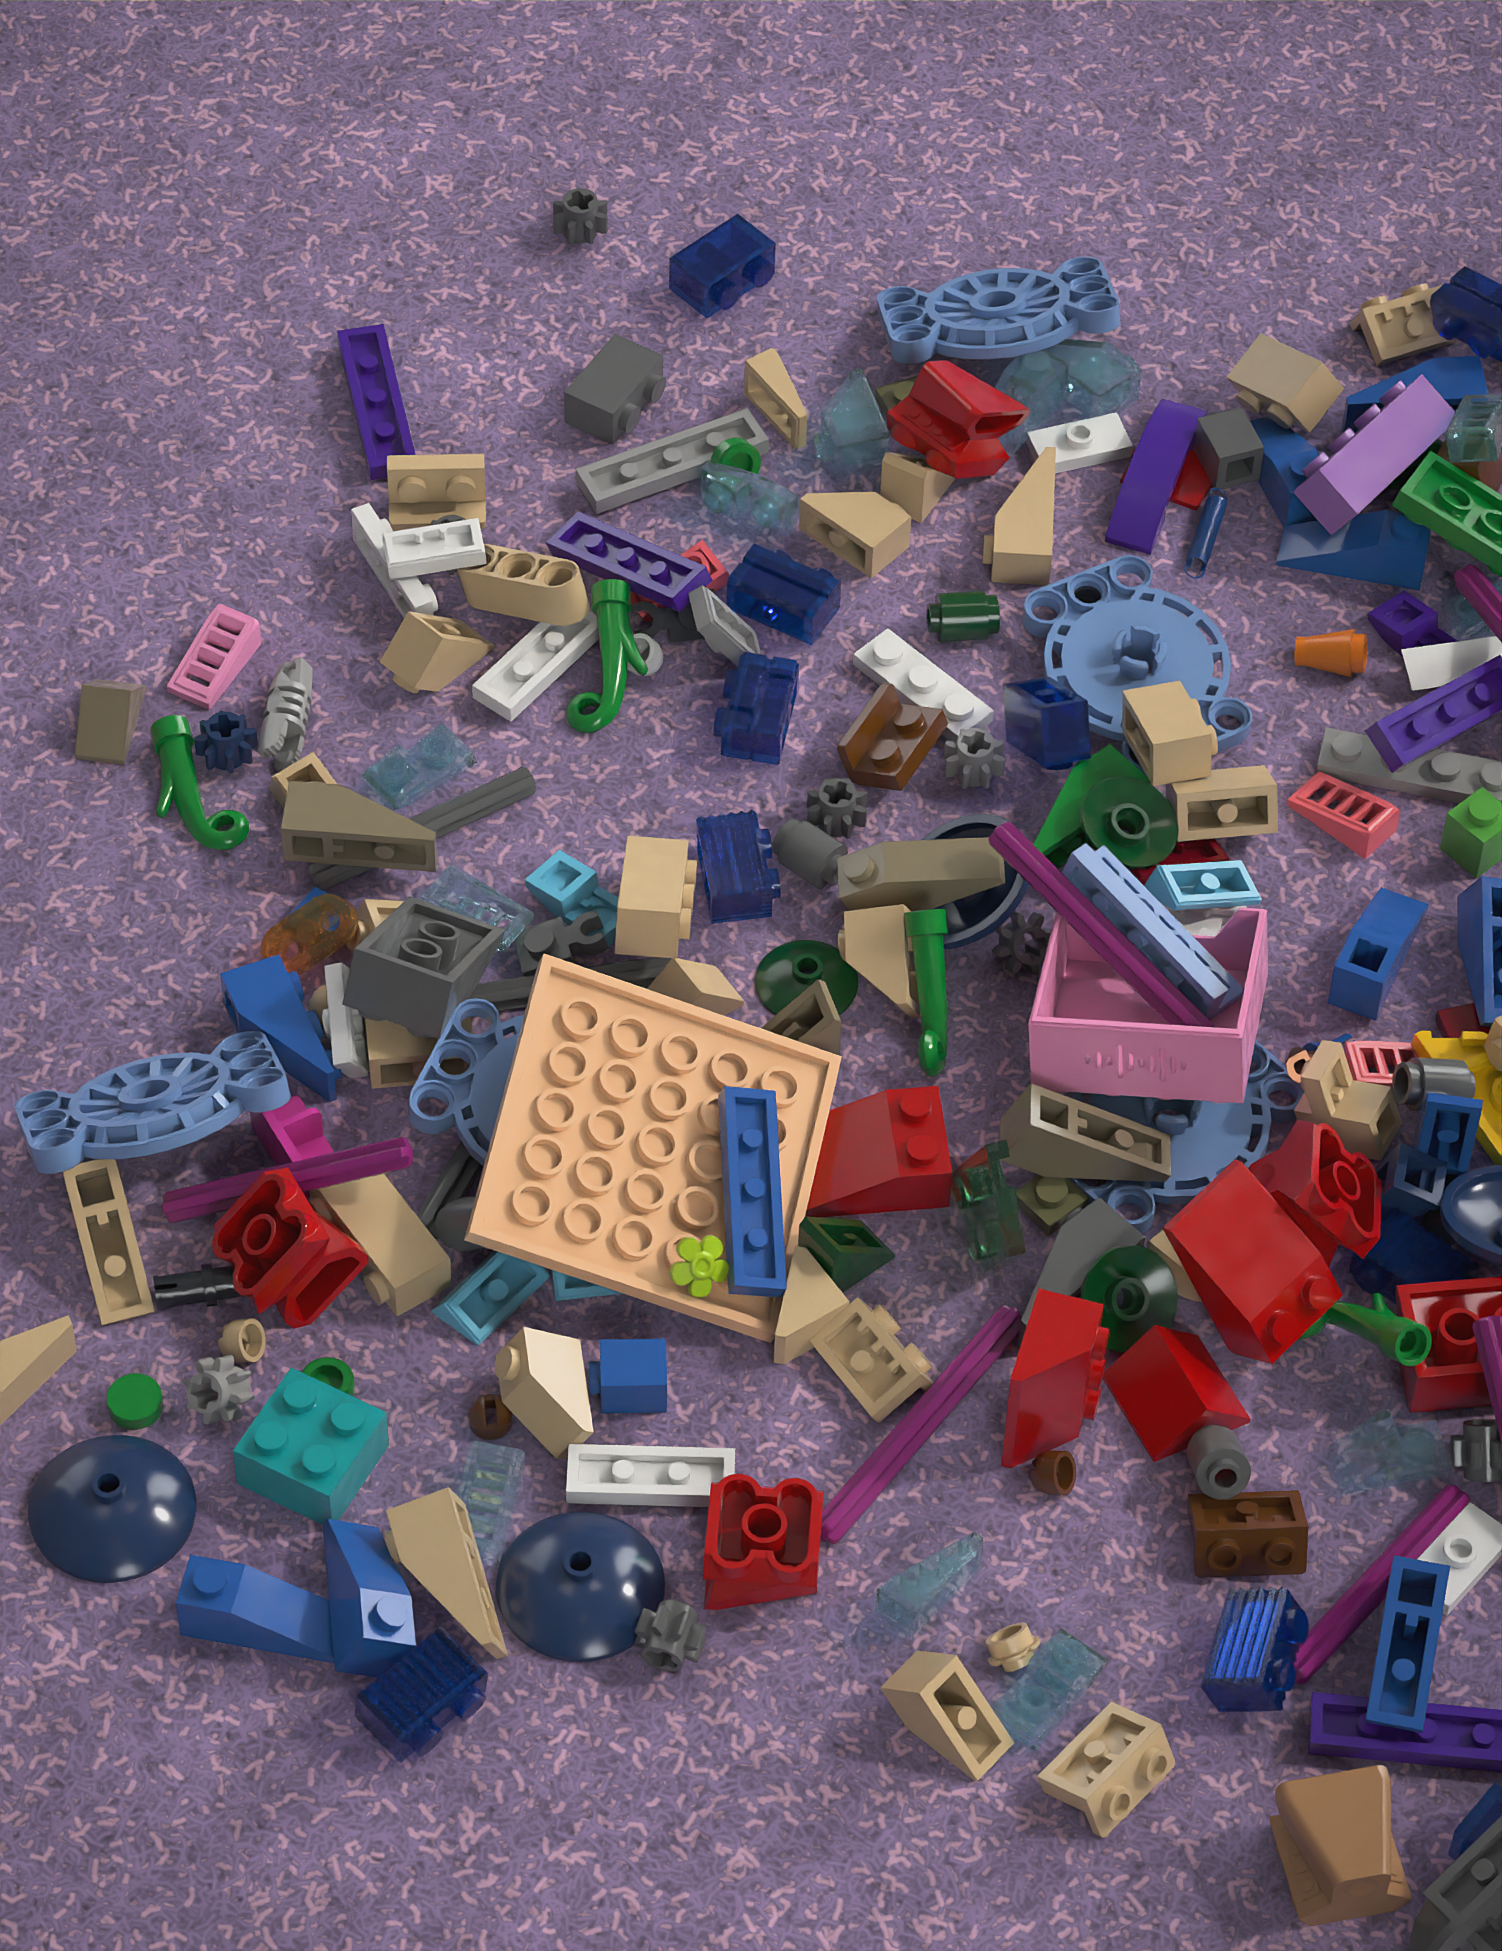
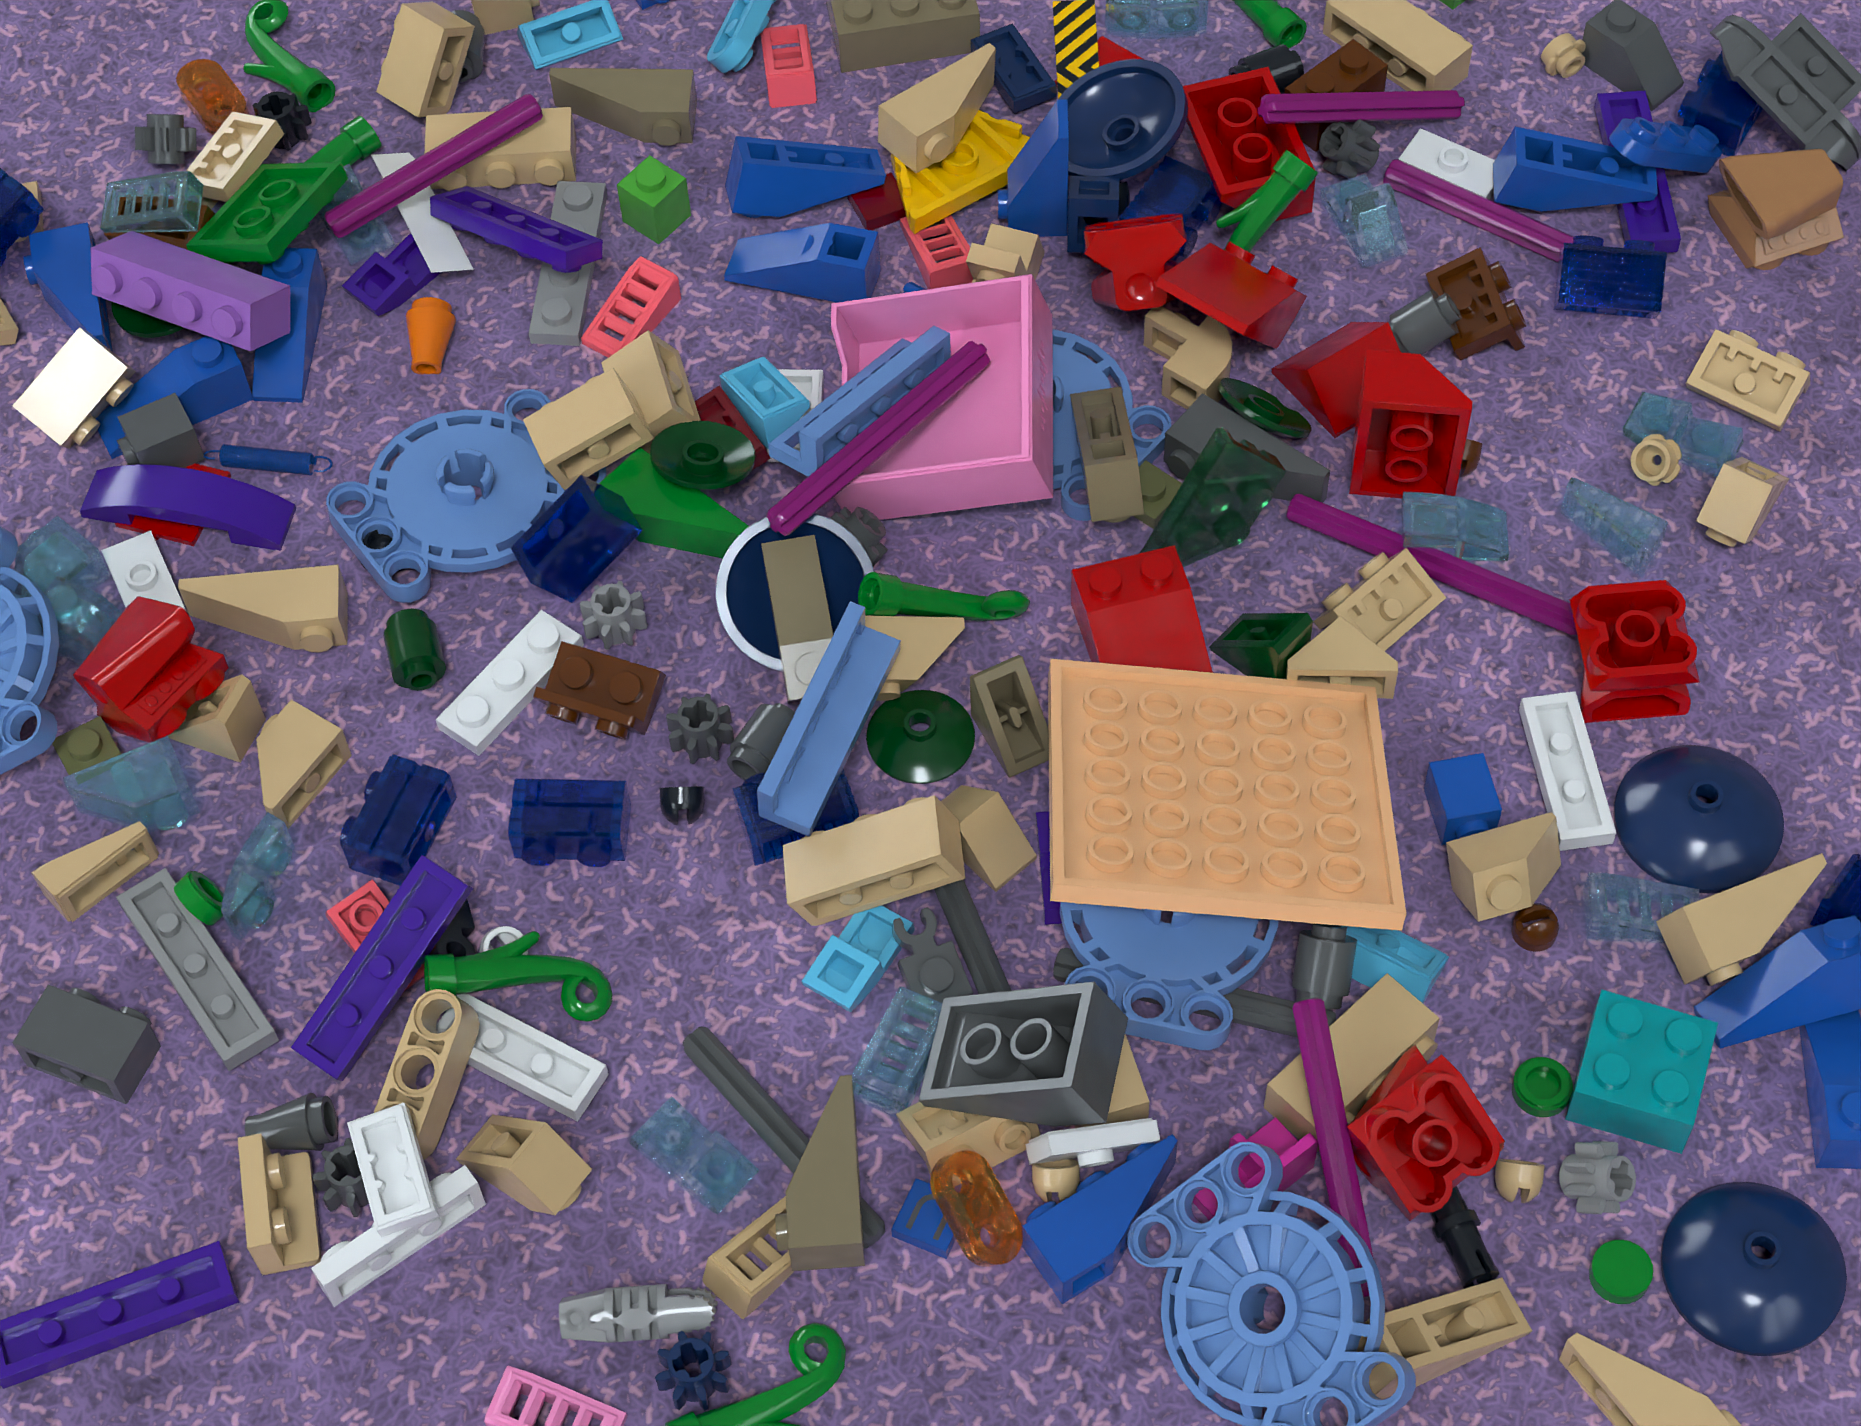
camera: 95 degrees left, 5 degrees up
(510, 516) = (297, 1125): none -> dark grey cone
(670, 1635) = (1744, 719): dark grey gear -> none
(700, 1265) = (1350, 733): lime plant -> none
(721, 626) = (478, 856): light grey plate -> none
(752, 1192) = (1250, 699): blue plate -> none
(766, 792) = (680, 798): none -> black hinge
(789, 863) = (827, 723): none -> medium blue fence
(953, 1438) = (1455, 522): none -> clear light blue slope
(1418, 1725) = (1666, 145): none -> blue plate
(1431, 1075) = (983, 190): dark grey brick -> none

